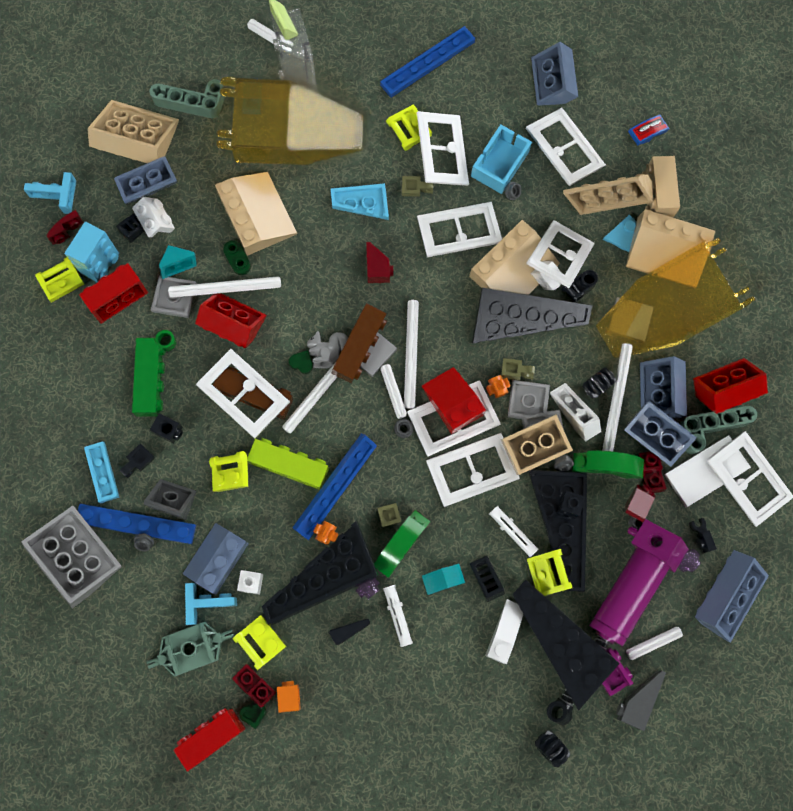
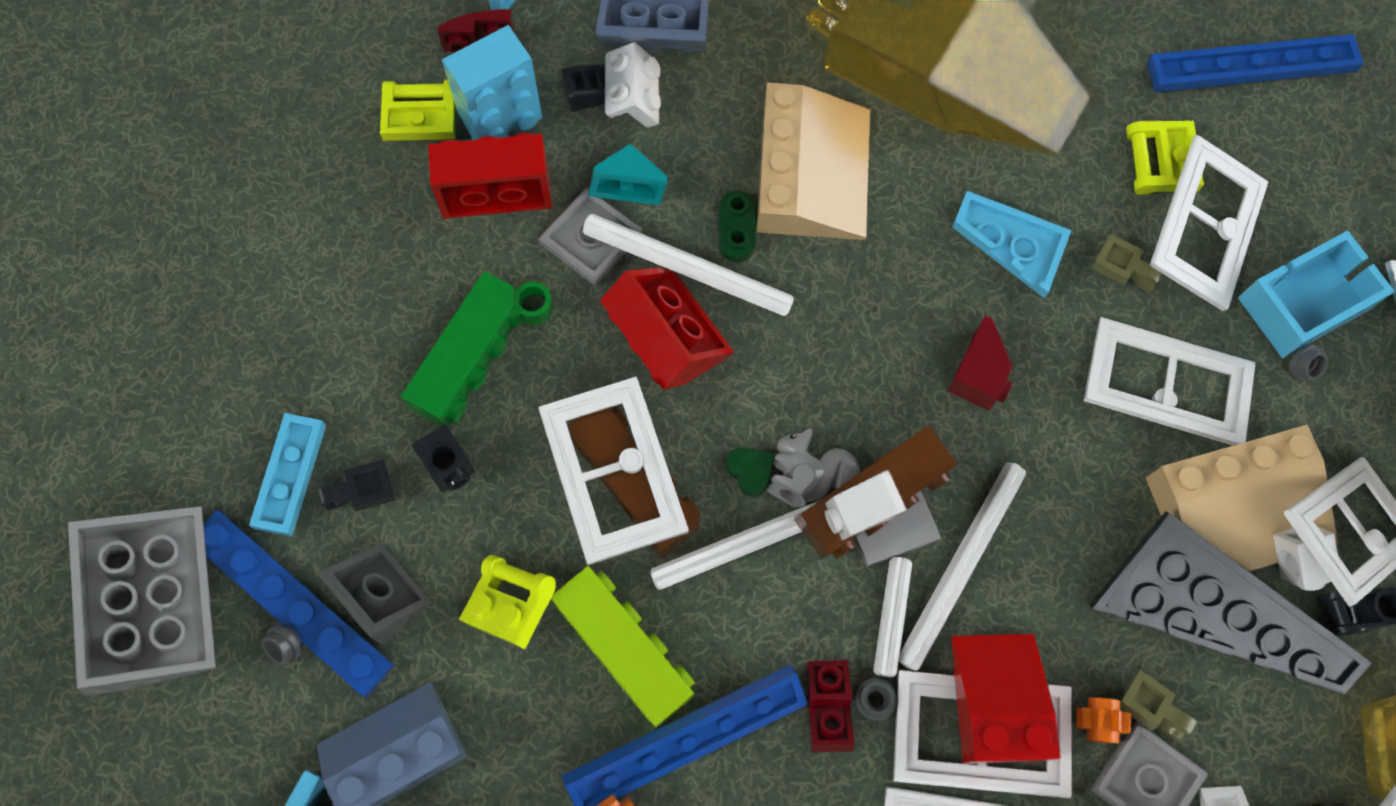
camera: 30 degrees right, 5 degrees down
(356, 352) = (864, 506): none -> white slope
(386, 441) = (830, 706): none -> dark red slope

